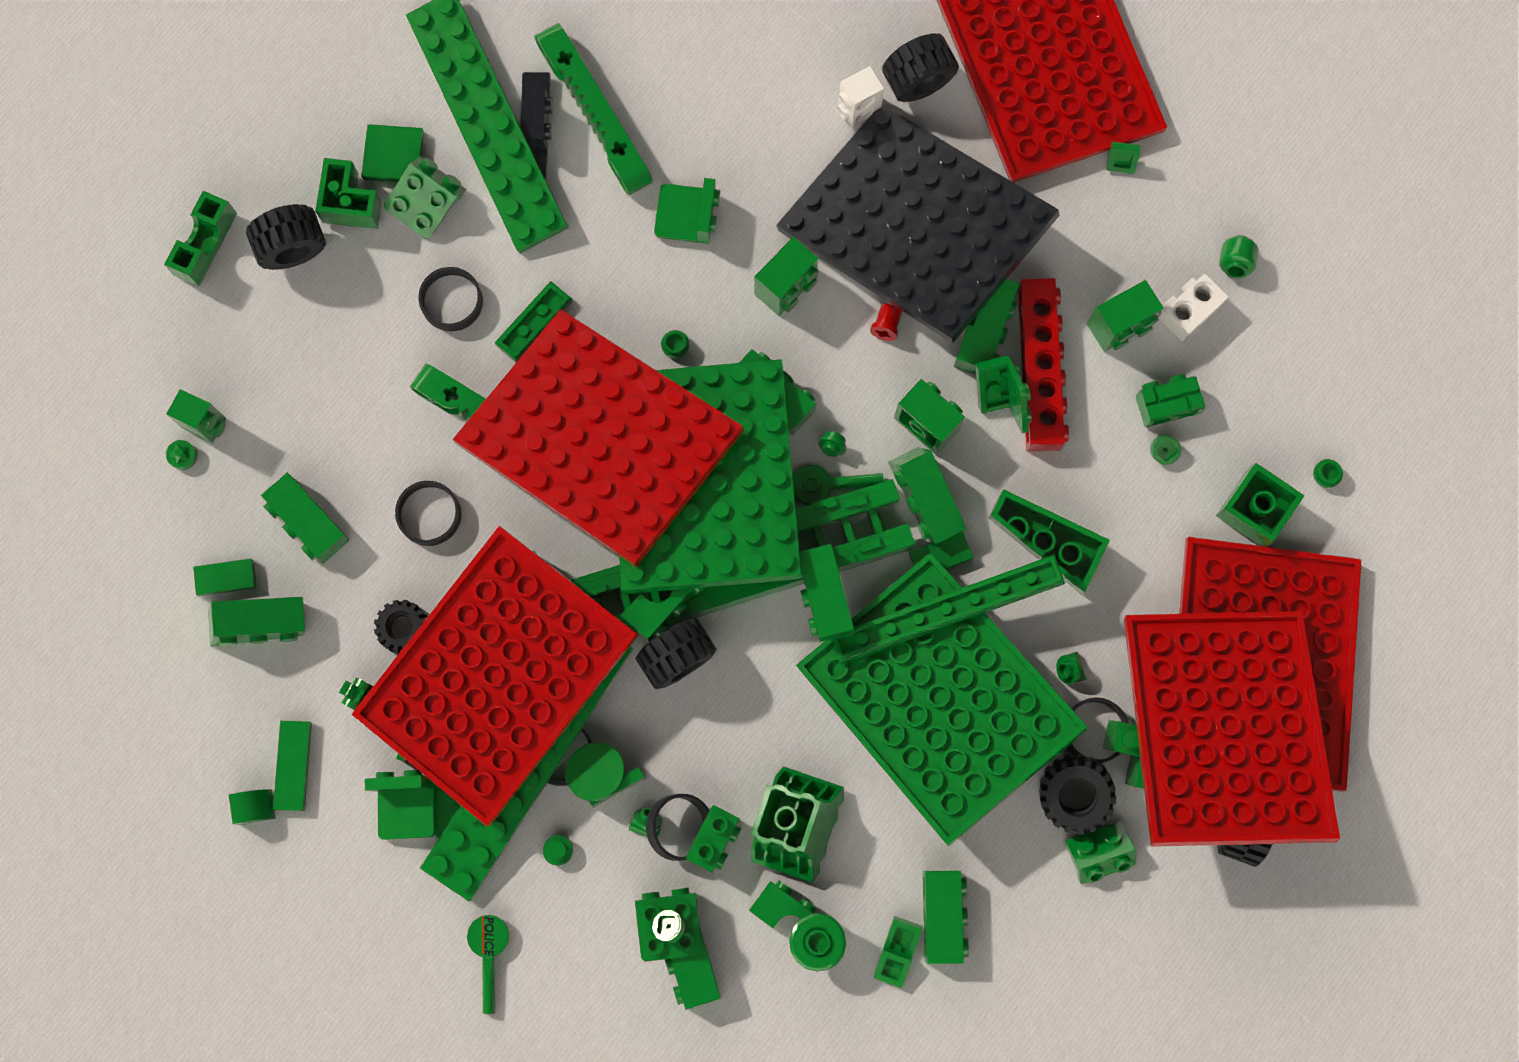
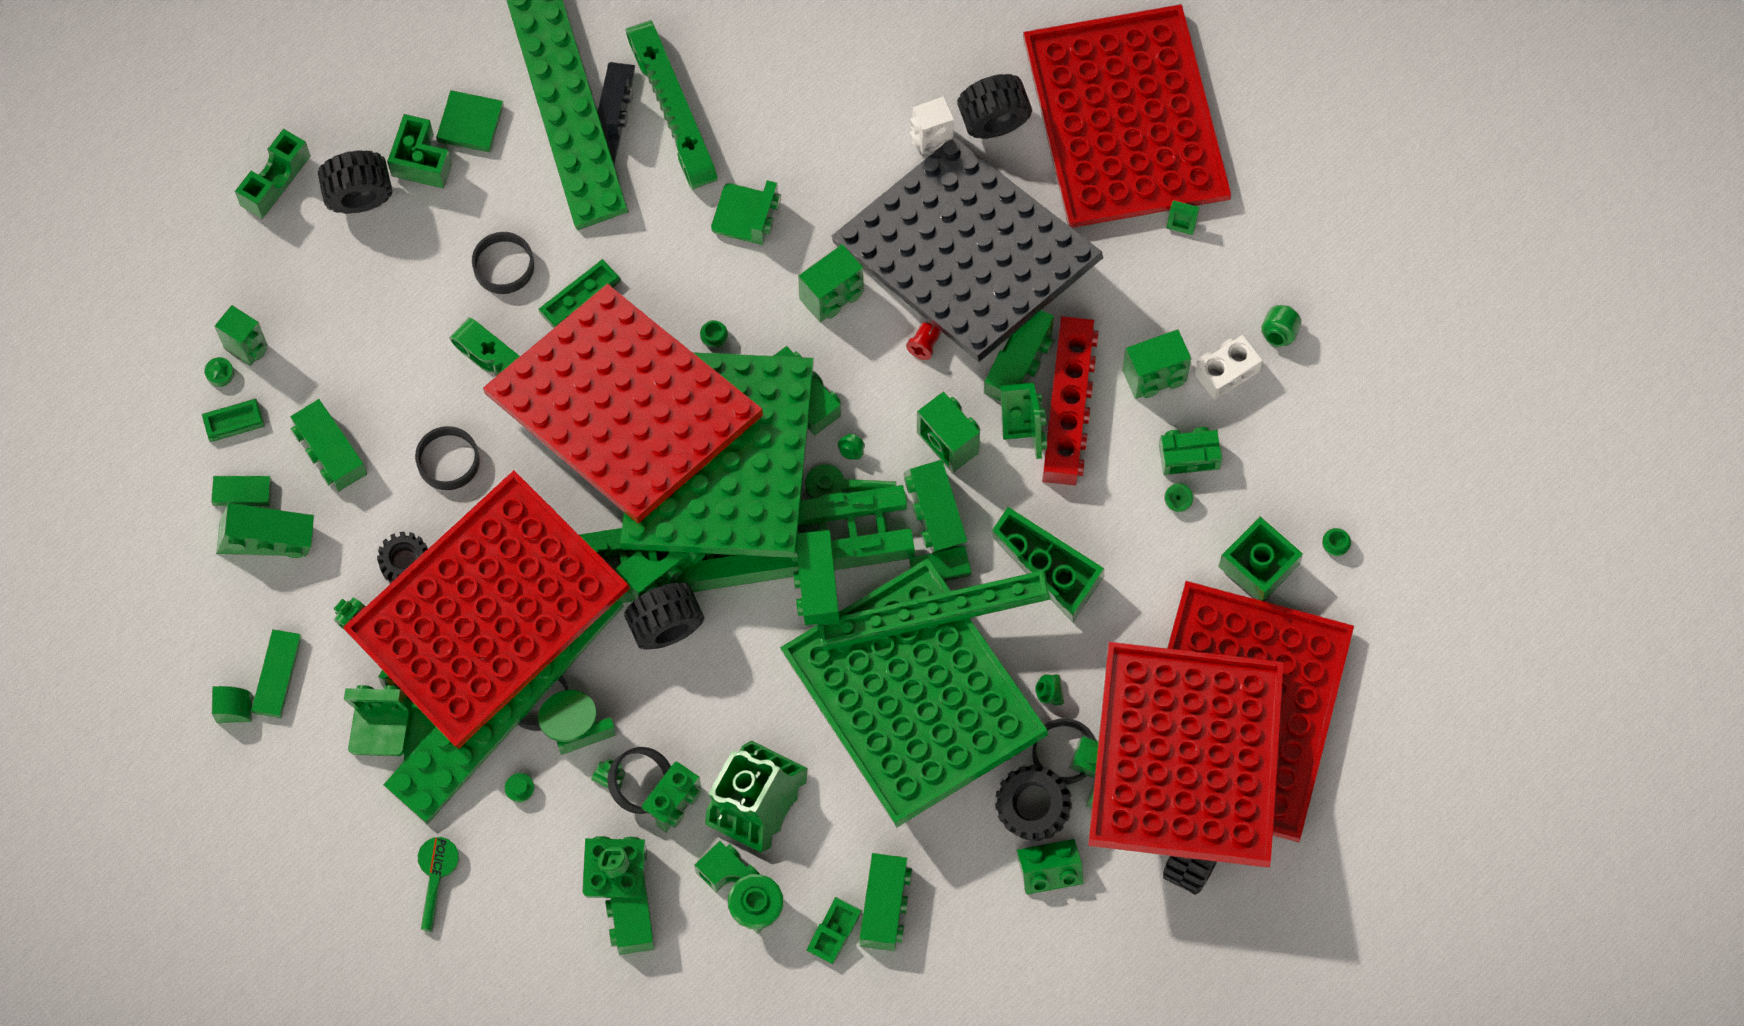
camera: 10 degrees right, 10 degrees down
(204, 503) = (233, 420): none -> green tile
(423, 196) = (493, 163): green bracket -> none

